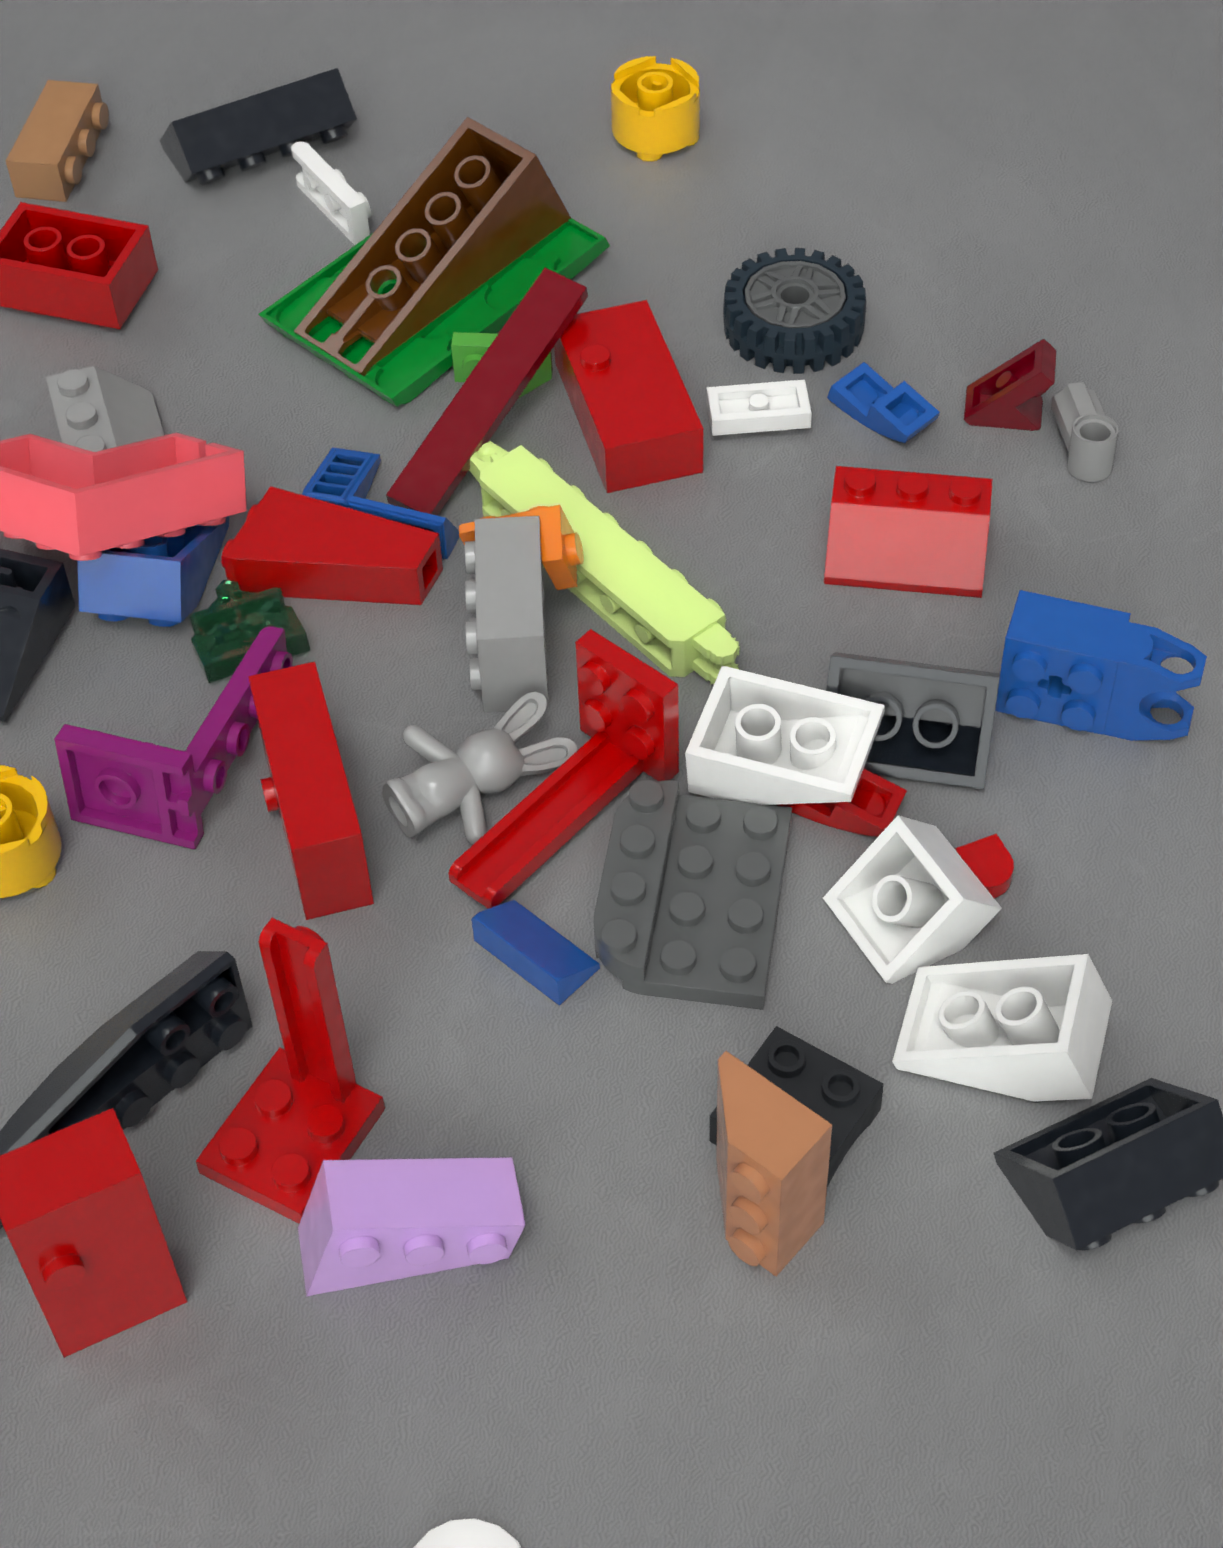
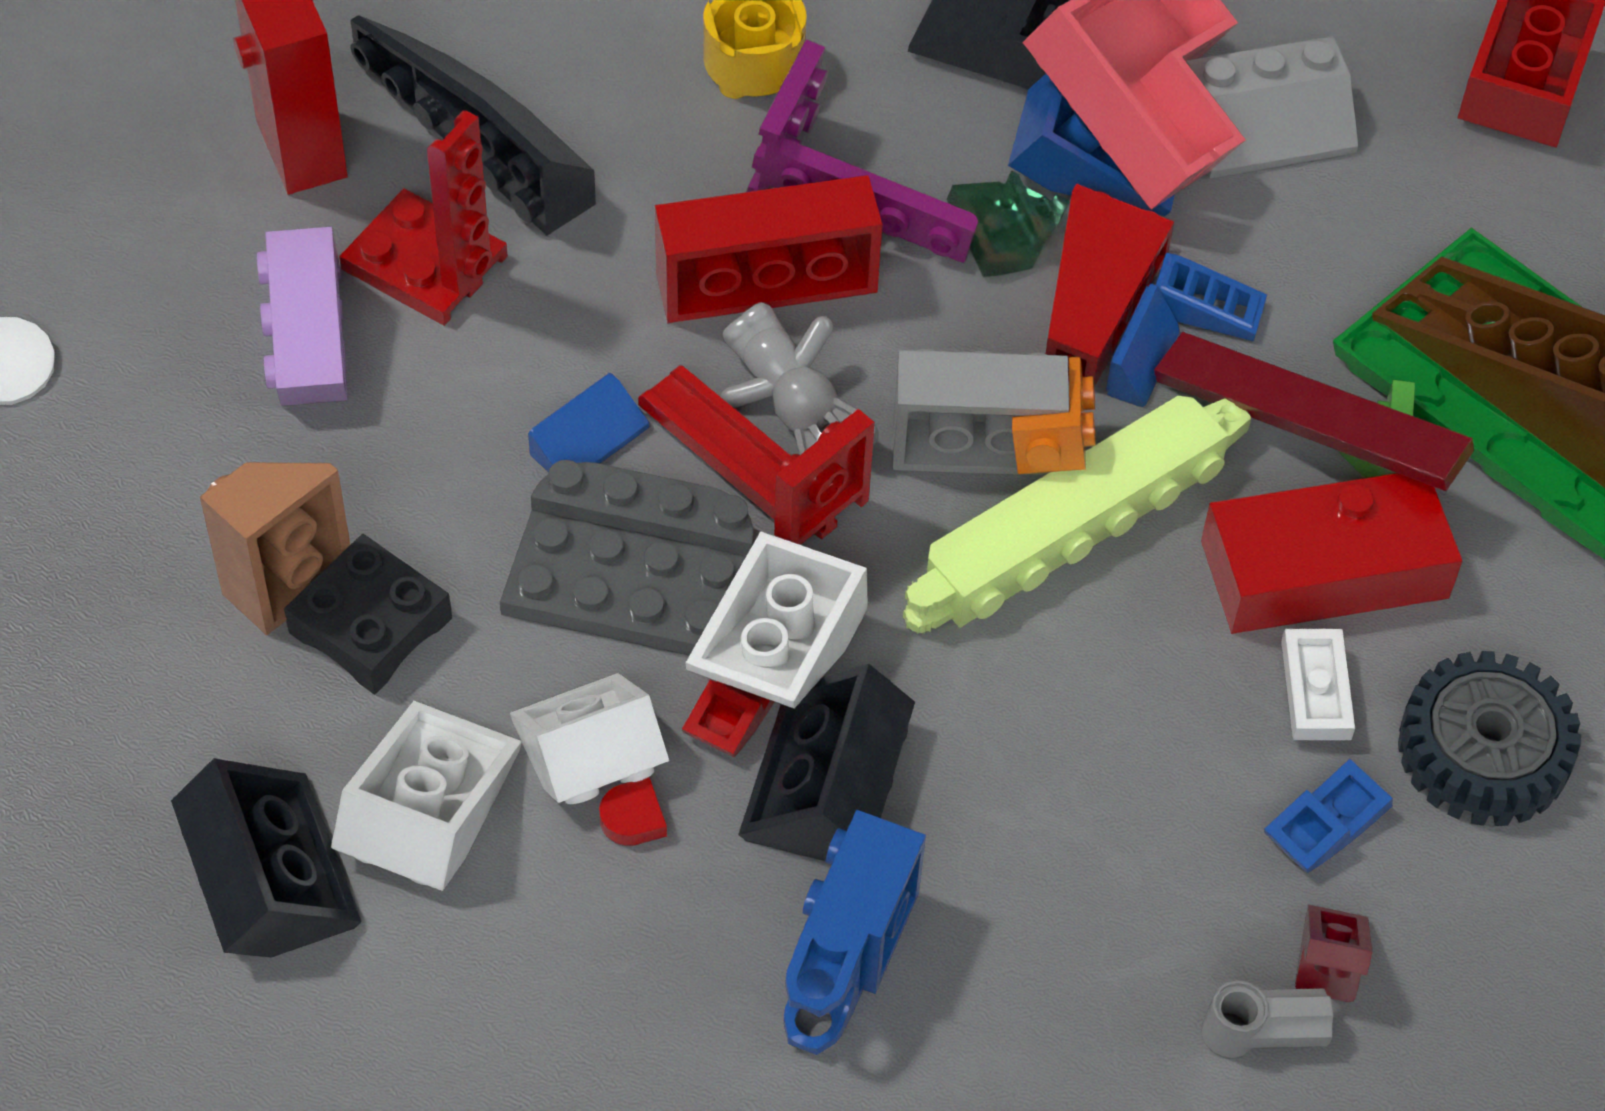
camera: 90 degrees right, 5 degrees up
(908, 531) = (1099, 804): slope -> none

